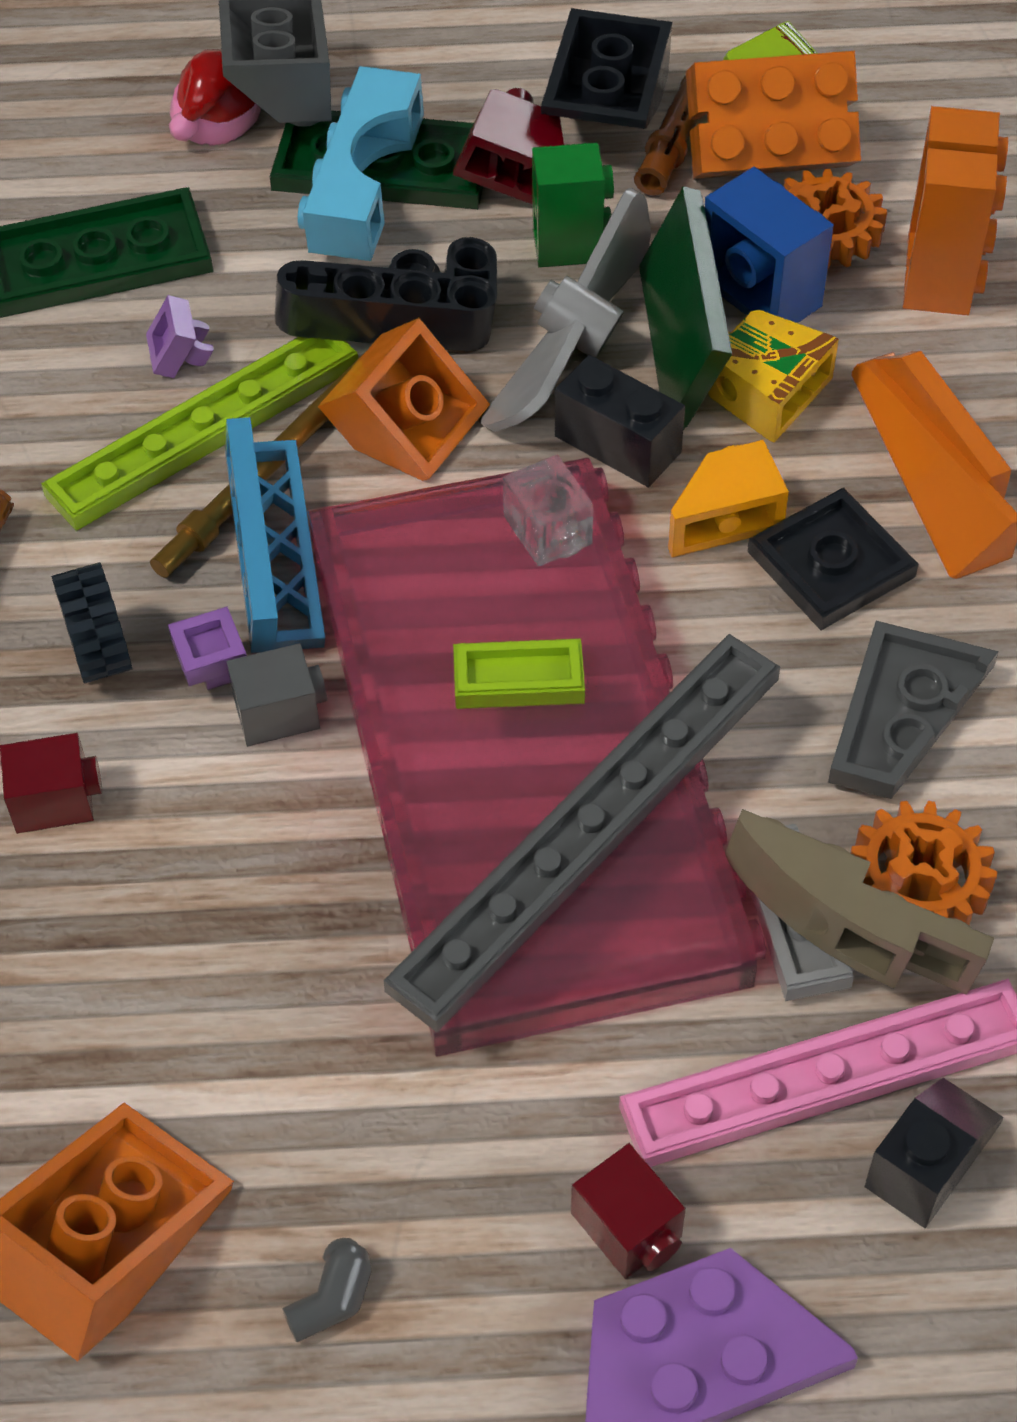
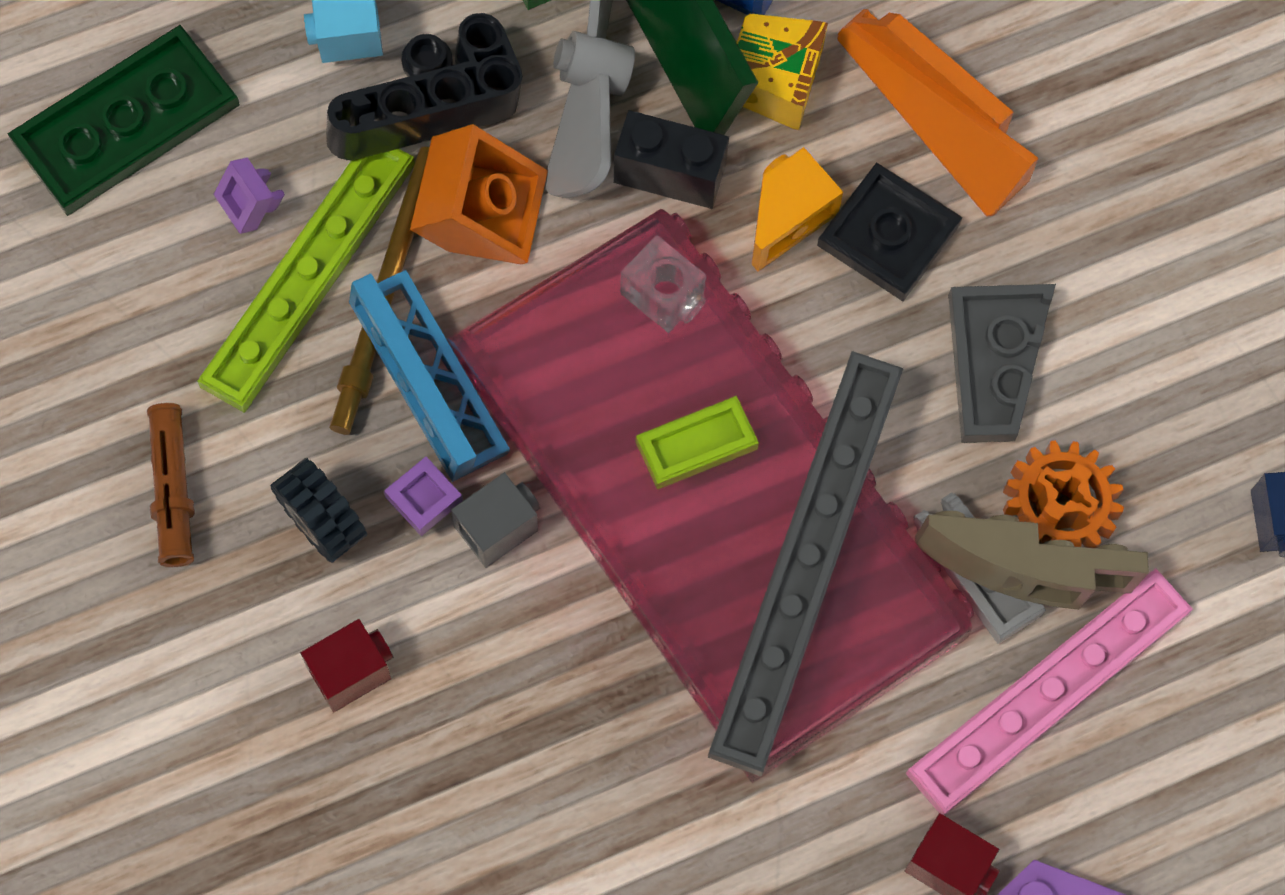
camera: 25 degrees left, 15 degrees up
(930, 1150) = (1150, 728): black slope -> none

